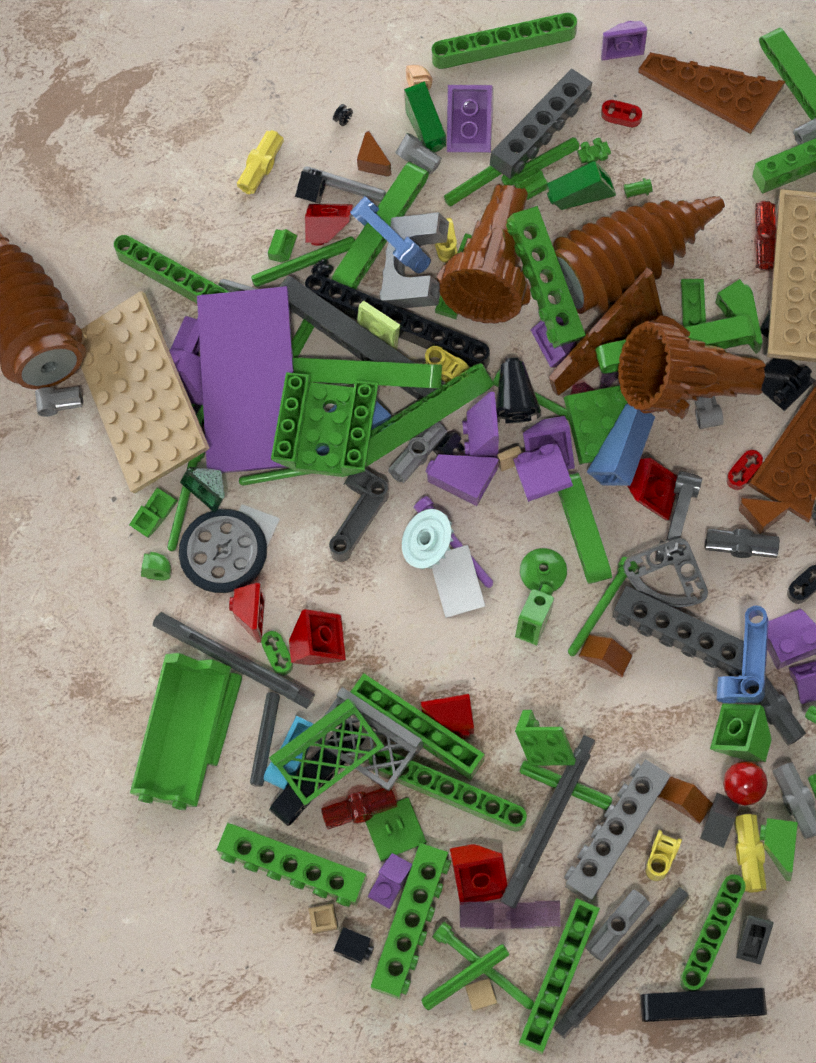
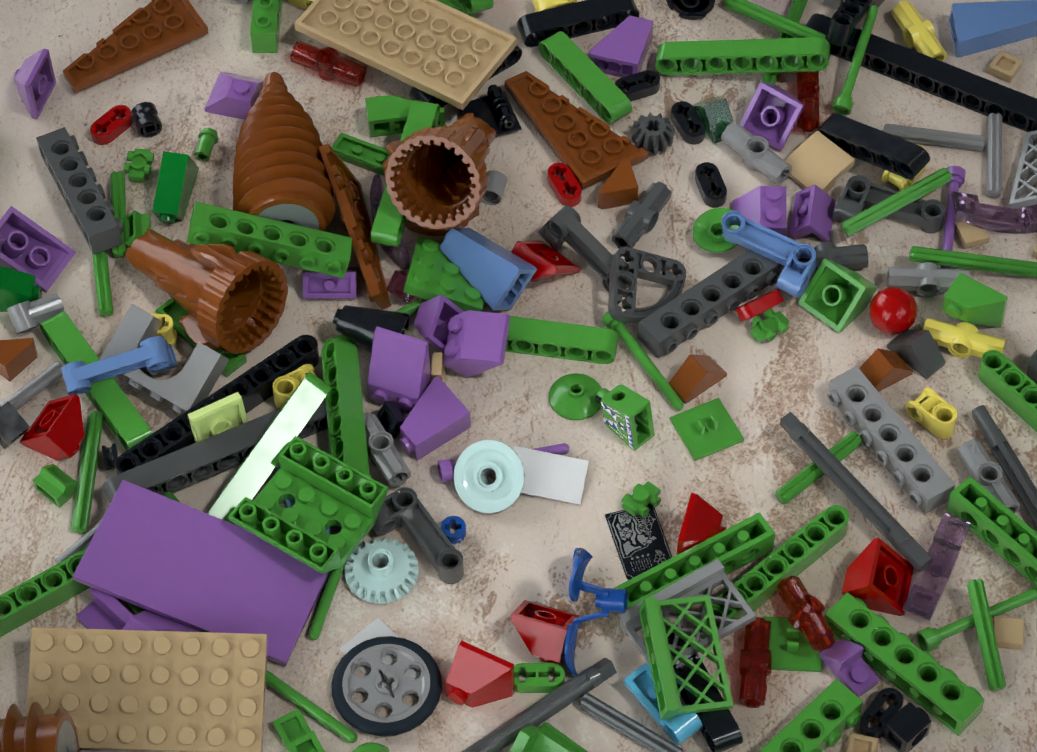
camera: 70 degrees left, 15 degrees down
(205, 485) = (306, 665): clear green slope -> none
(322, 514) = (384, 583): none -> light aqua gear
(345, 672) = (606, 598): none -> blue plant
(362, 915) = (876, 709): none -> black beam
(379, 529) = (459, 524): none -> blue bush
(409, 835) = (806, 613): none -> clear red piece
(434, 675) = (638, 541): none -> black sticker
(465, 658) = (641, 497): none -> bright green piece
(543, 744) = (776, 453): bright green bracket -> none
(562, 683) = (706, 429): none -> bright green piece
(637, 134) = (146, 119): none -> black wheel
(681, 689) = (770, 326): none -> bright green piece
(698, 673) = (759, 305): none -> red beam
(700, 182) = (233, 95): none -> medium lavender slope
(761, 597) = (707, 228): none -> bright green dish

